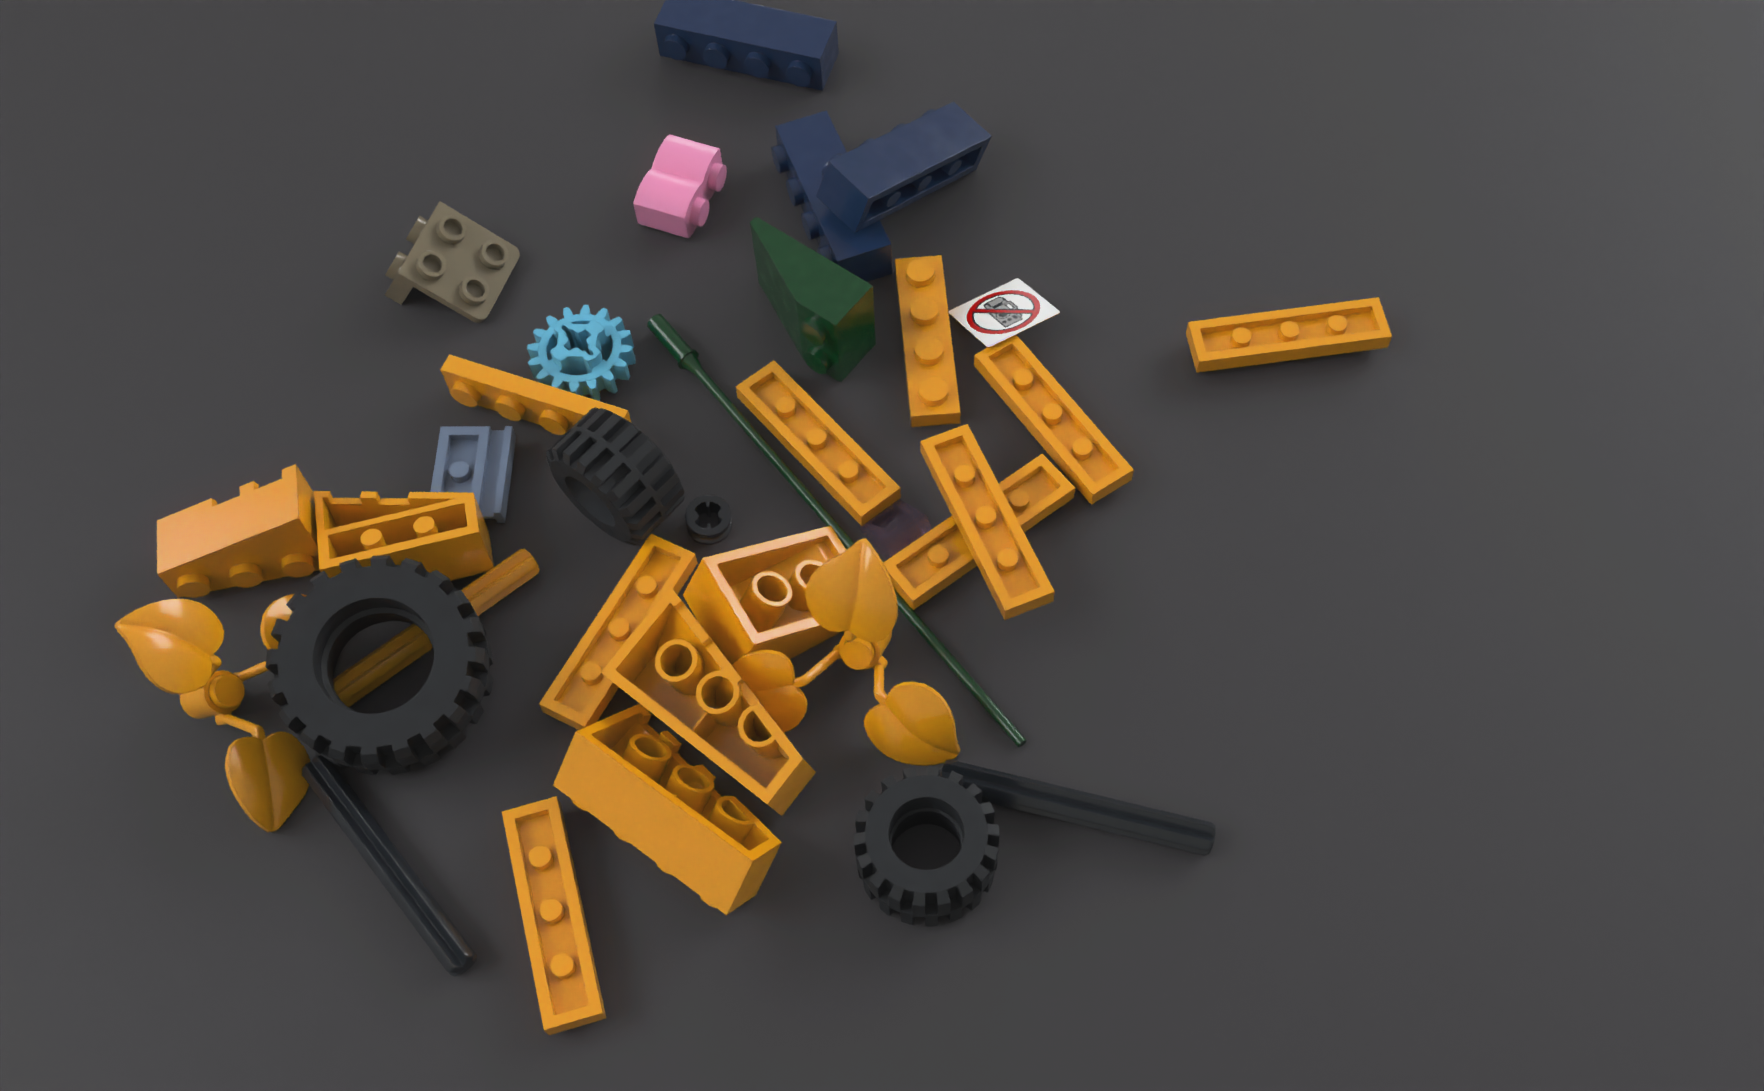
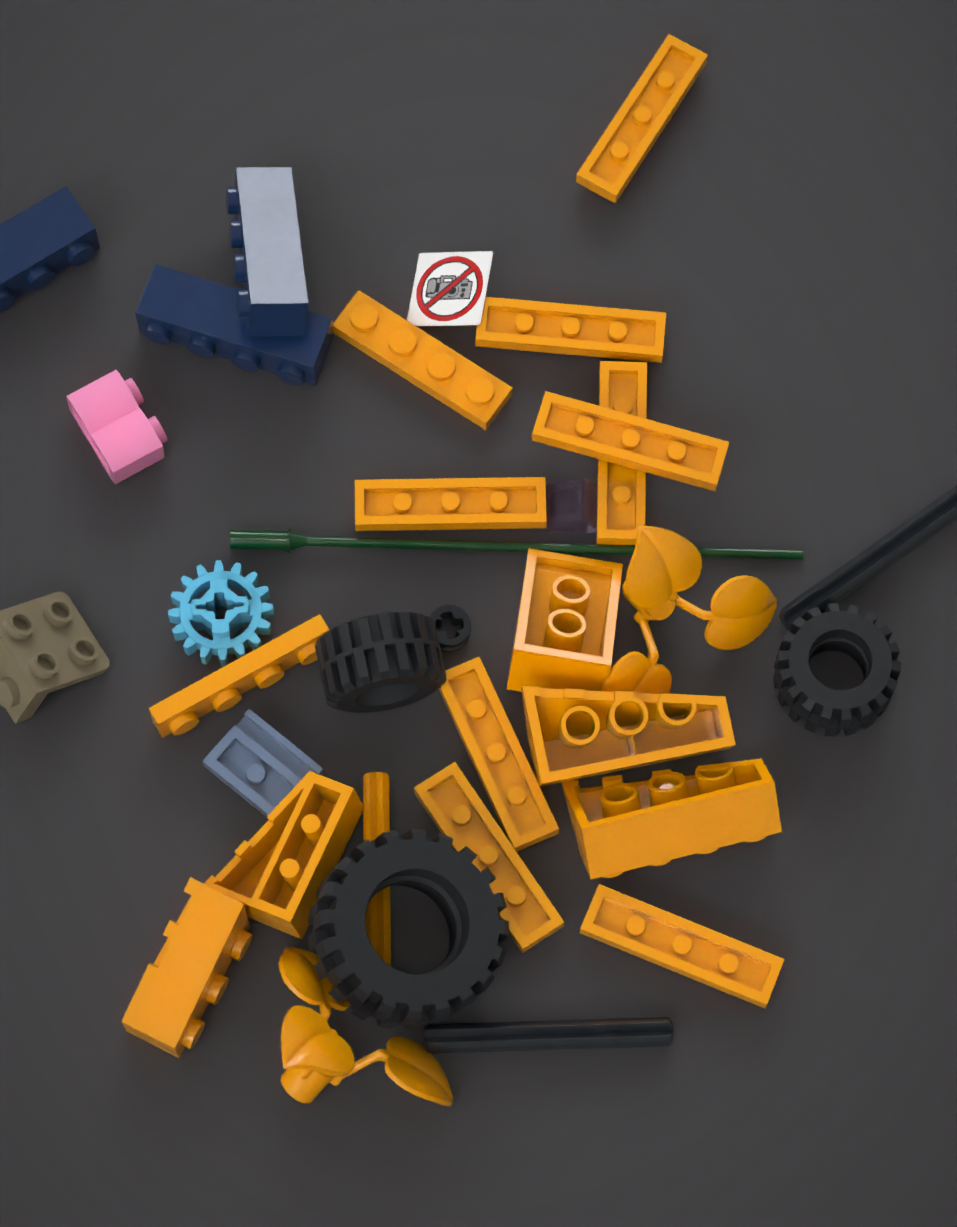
camera: 55 degrees left, 10 degrees up
(512, 703) = (465, 818): none -> light orange plate
(816, 300) = (333, 414): dark green slope -> none

